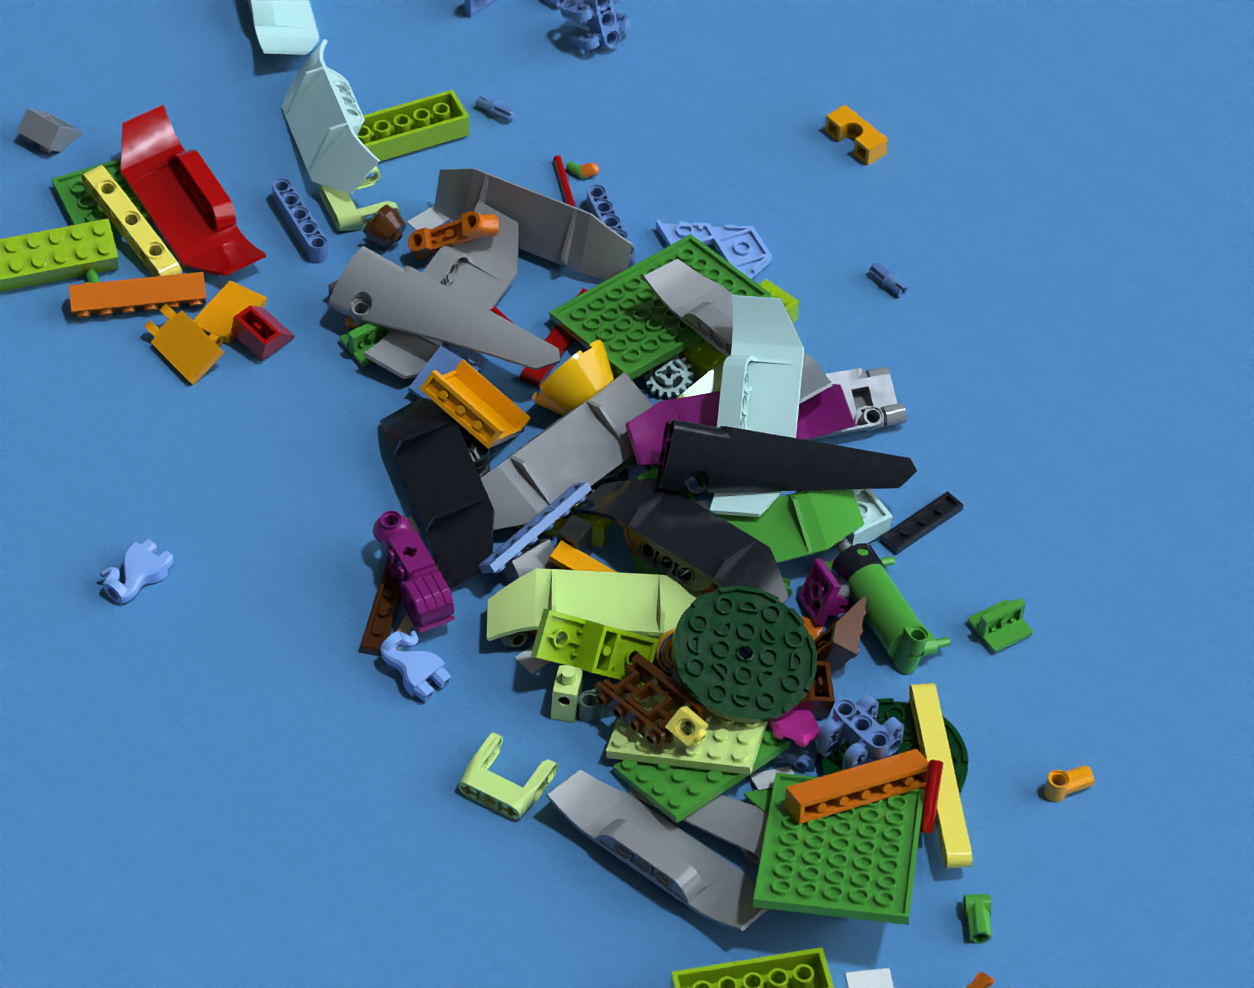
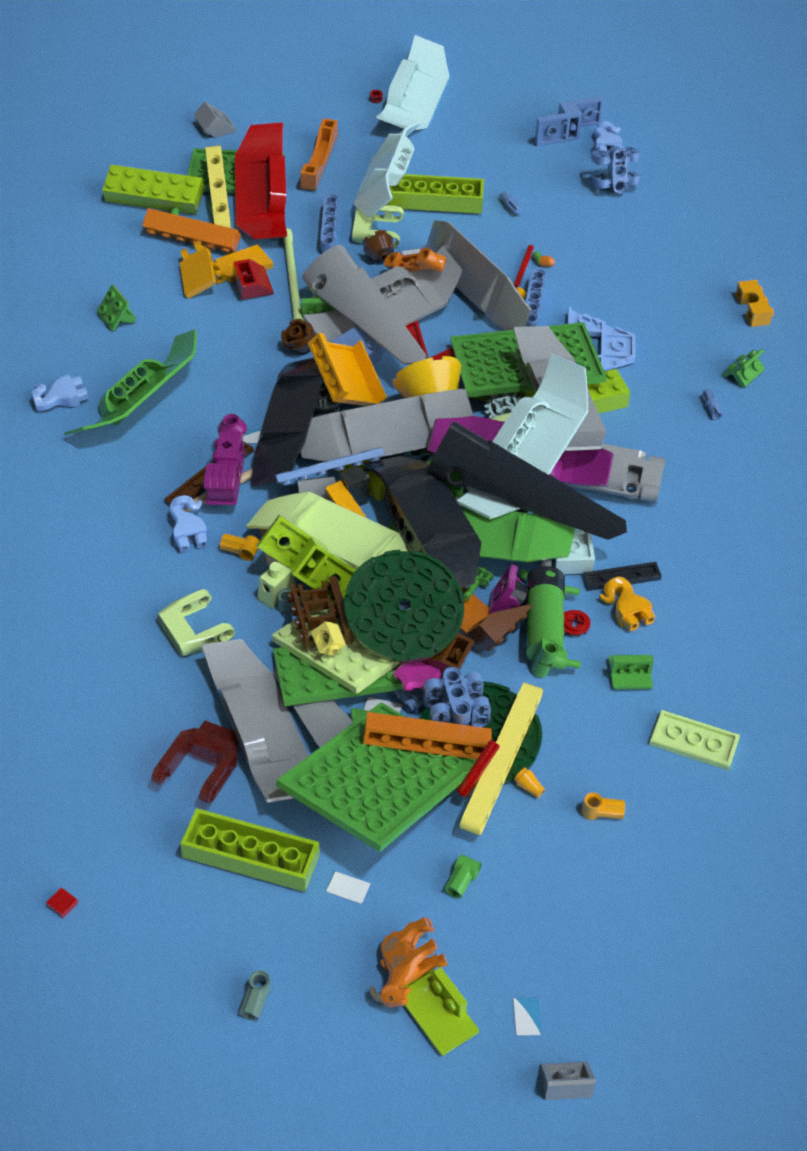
camera: 30 degrees right, 0 degrees up
(121, 435) = (115, 309): none -> bright green bracket
(215, 116) = (313, 170): none -> orange arch
(226, 19) = (376, 96): none -> red bush
(237, 517) = (153, 375): none -> bright green piece
(349, 359) = (288, 241): none -> yellowish green piece
(374, 381) = (298, 335): none -> reddish brown cone
(496, 664) = (244, 547): none -> light orange piece
(628, 899) = (208, 743): none -> clear red plate
(897, 220) = (746, 367): none -> bright green bracket
(915, 591) = (583, 622): none -> red gear
(954, 553) = (629, 606): none -> light orange hips
(979, 790) = (529, 782): none -> light orange cone
(1108, 670) = (694, 740): none -> yellowish green tile

